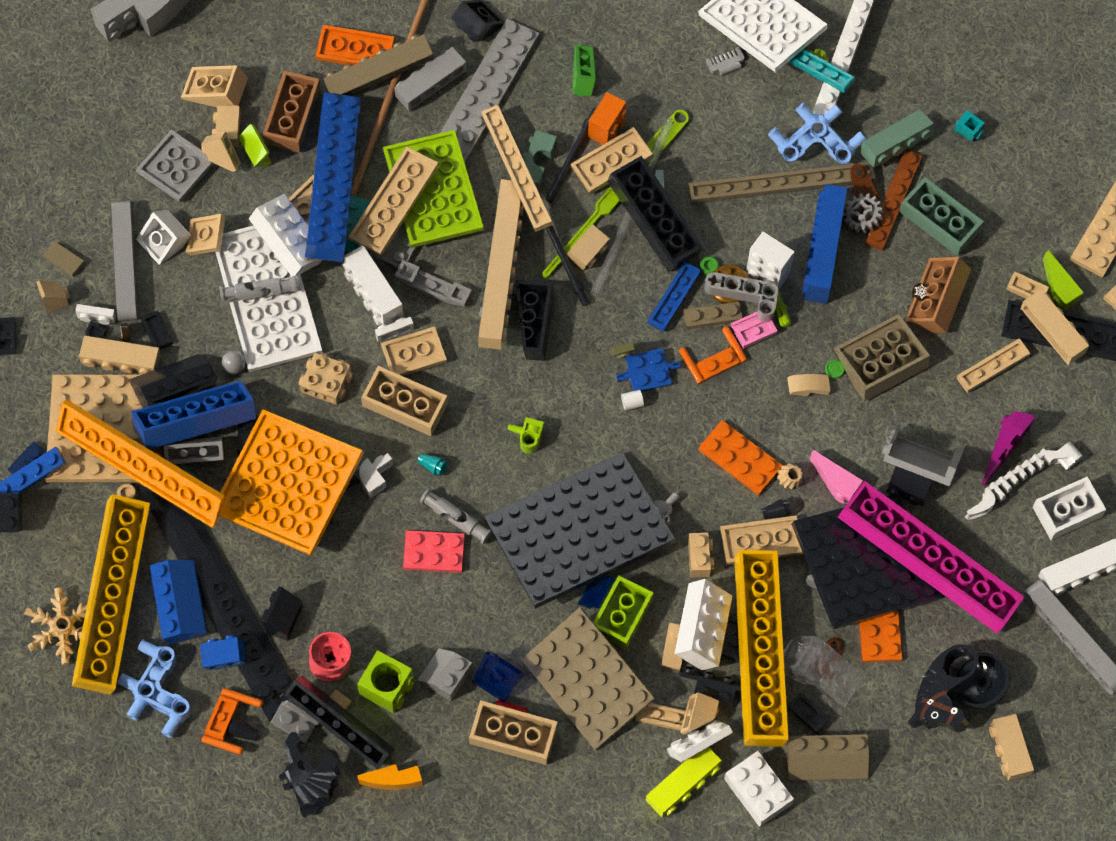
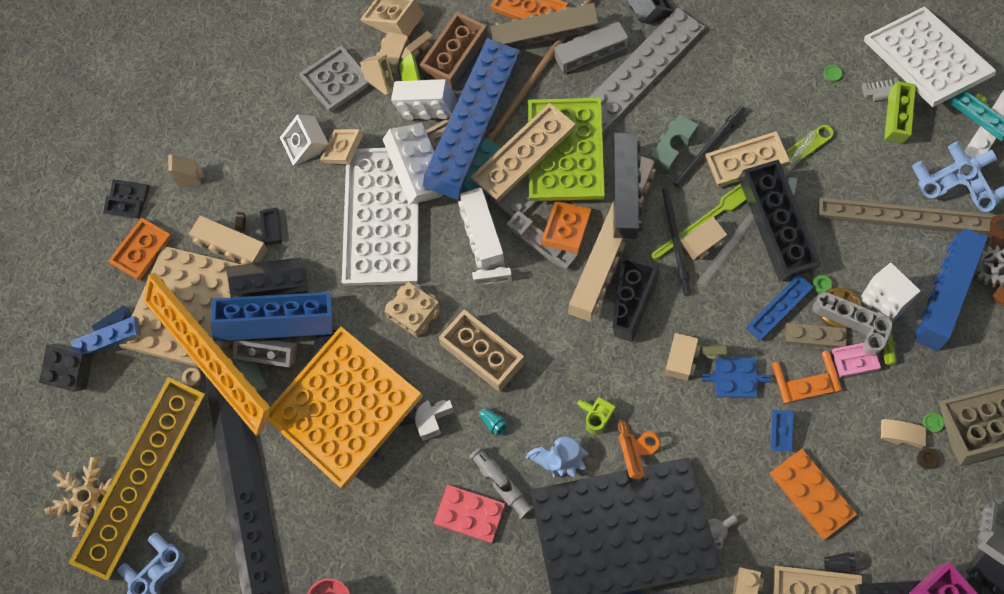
camera: 25 degrees right, 0 degrees up
(30, 383) = (140, 249): none -> orange plate
(63, 259) = (209, 141): dark tan tile -> none
(96, 330) = (215, 214): black tile -> none
(99, 314) = (224, 200): white plate -> none
(124, 260) = (261, 155): light grey beam -> none
(178, 600) = (201, 500): blue slope -> none
(223, 653) = (227, 569): blue brick -> none
(233, 362) = (330, 272): light grey piece -> none
(245, 290) = (370, 207): light grey piece -> none
(255, 111) = (416, 46): none -> tan plate
(278, 169) = (424, 99): none -> white brick
(282, 613) = (296, 542): black slope -> none
(414, 352) = (505, 303): tan plate -> none
(453, 265) = (566, 227): none -> orange plate
(502, 212) = (625, 186): none -> brick
(506, 481) = (562, 458): none -> light blue head
(516, 168) = (651, 148): tan plate -> none
(572, 456) = (635, 449): none -> orange piece
(583, 70) = (739, 69): bright green slope -> none
(593, 363) = (681, 357): none -> tan brick
(607, 119) = (752, 118): orange brick -> none
(632, 400) = (712, 404): white gear -> none
(675, 55) = (832, 73): none -> bright green piece
(700, 407) = (781, 430): none -> blue plate
(746, 83) = (900, 112): none -> lime brick
(784, 478) = (856, 528): tan piece -> none
(835, 402) = (927, 458): none -> dark brown tile
(838, 480) = (914, 546): bright pink slope -> none

